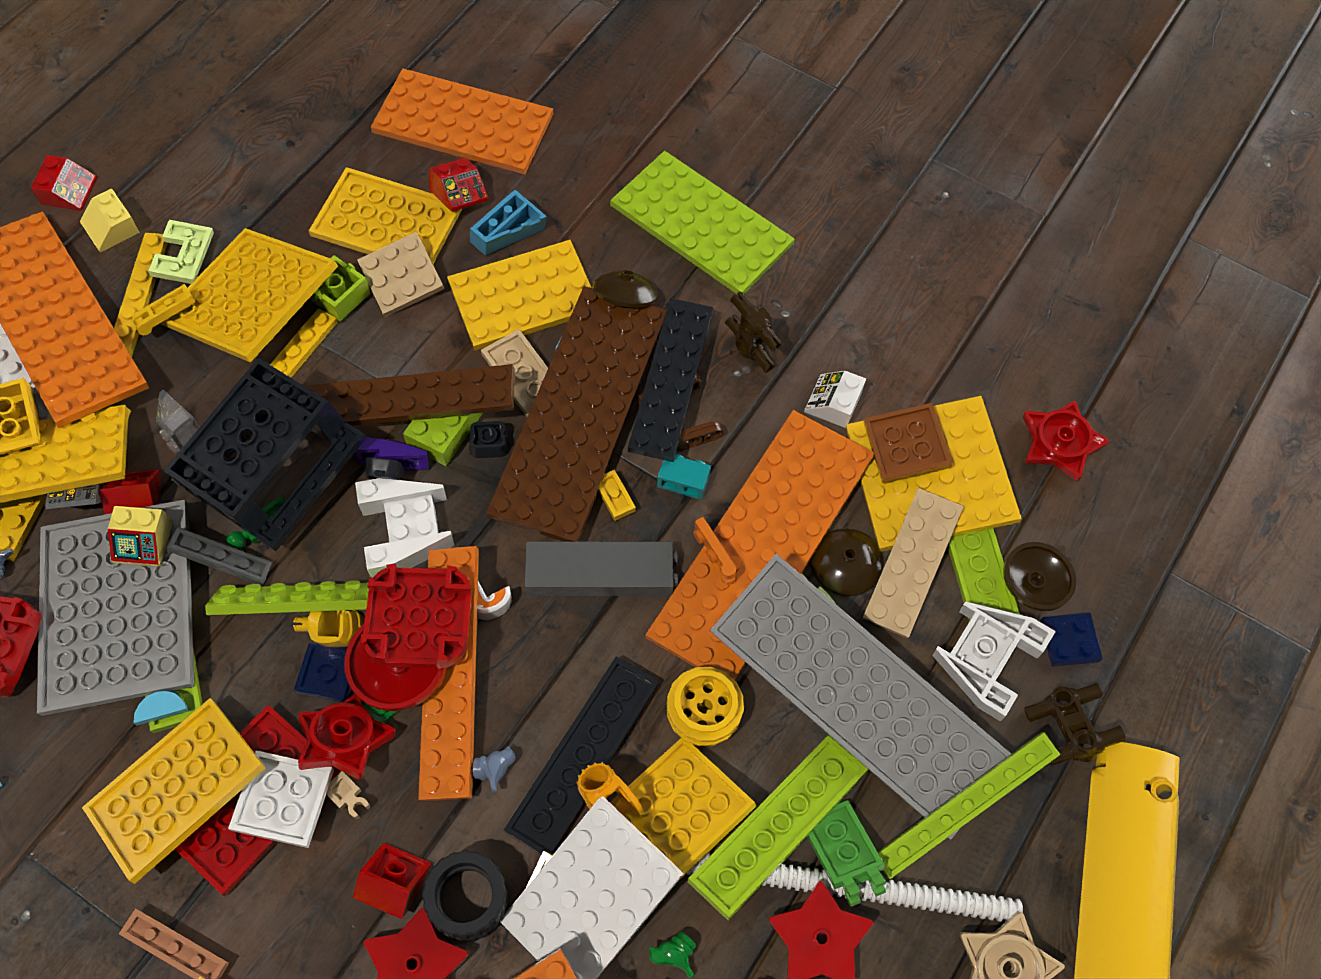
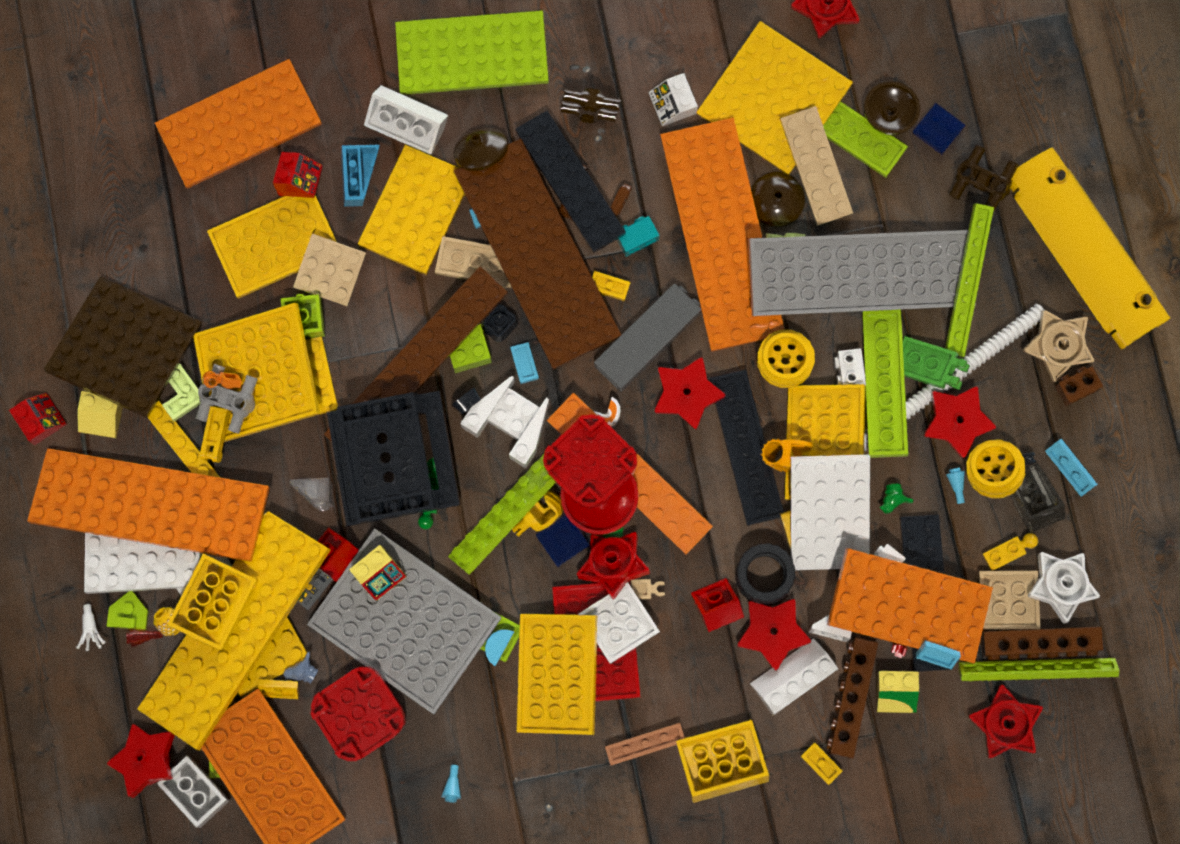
camera: 40 degrees left, 15 degrees up
(181, 189) = (123, 347): none -> dark brown plate
(203, 294) = (227, 399): none -> light grey piece
(216, 273) = (227, 380): none -> orange plate
(219, 556) = (431, 538): dark grey tile -> none
(409, 456) = (458, 385): dark purple slope -> none
(471, 491) = (524, 363): none -> medium azure tile
(493, 766) = (706, 499): sand blue animal -> none
(583, 666) = (689, 406): none -> red plate
(591, 221) = (405, 119): none -> white slope
(715, 550) = (705, 266): orange plate -> none
(761, 777) = (850, 367): none -> white brick
(907, 443) = (746, 93): dark orange plate -> none
(986, 649) = (903, 183): white wedge -> none

